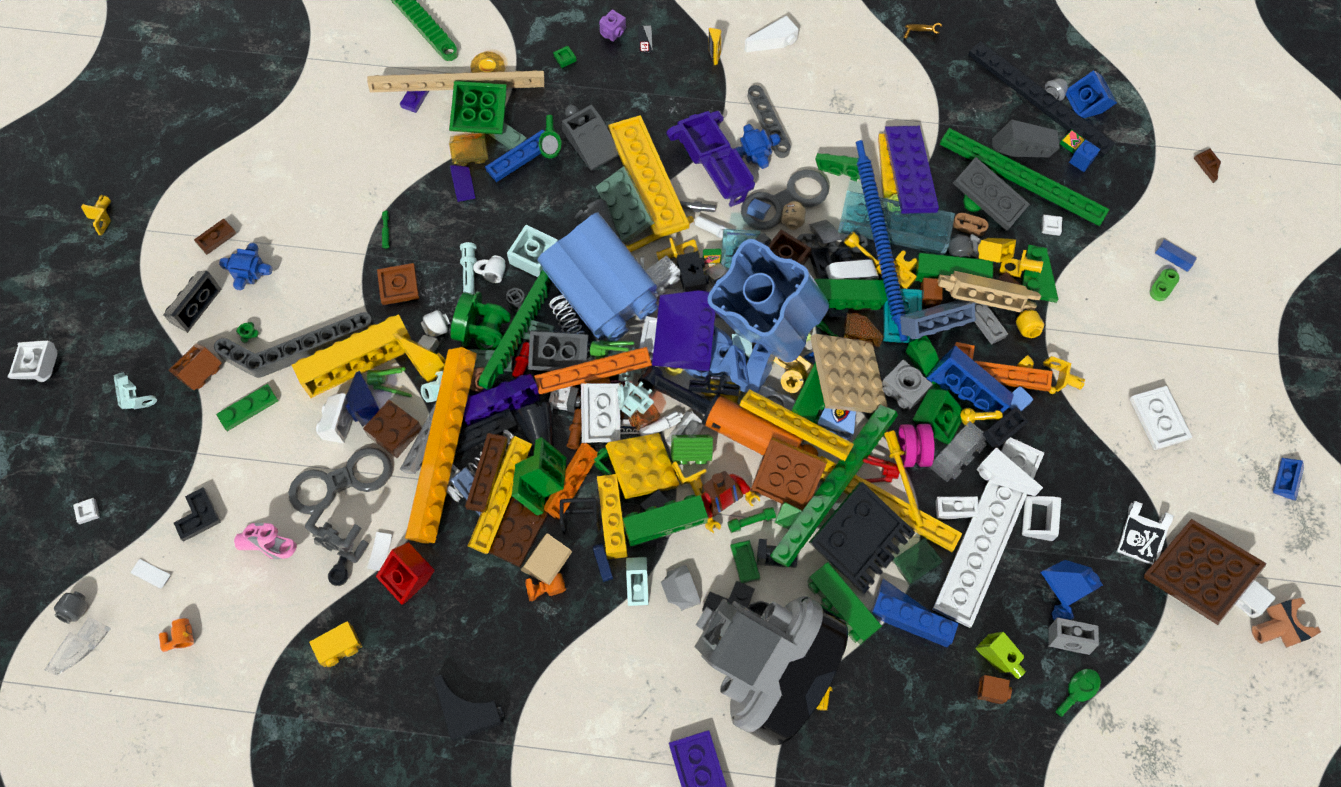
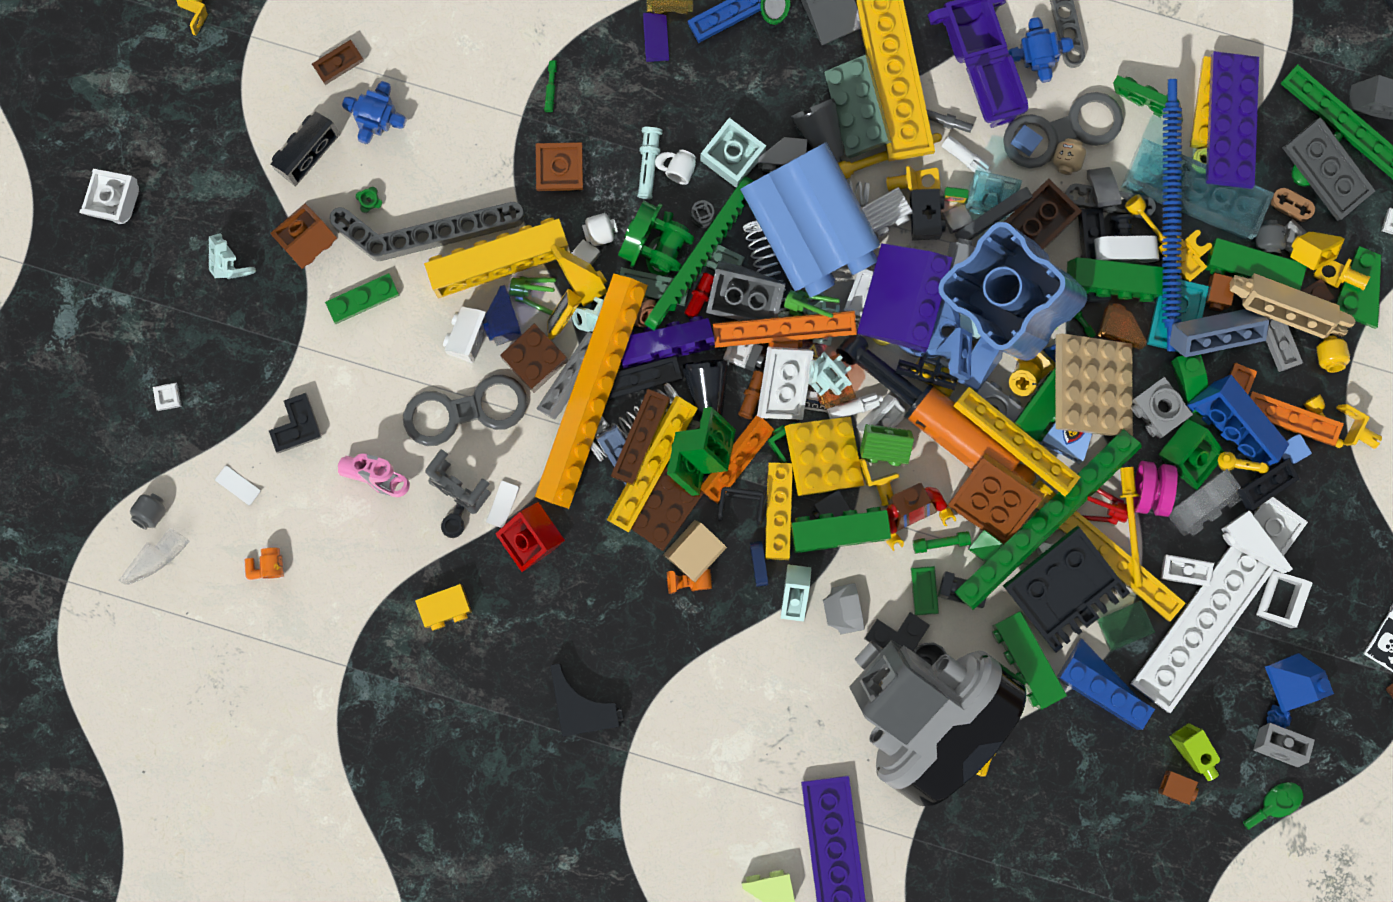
camera: 10 degrees right, 15 degrees up
(413, 389) = (562, 313): none -> yellow slope

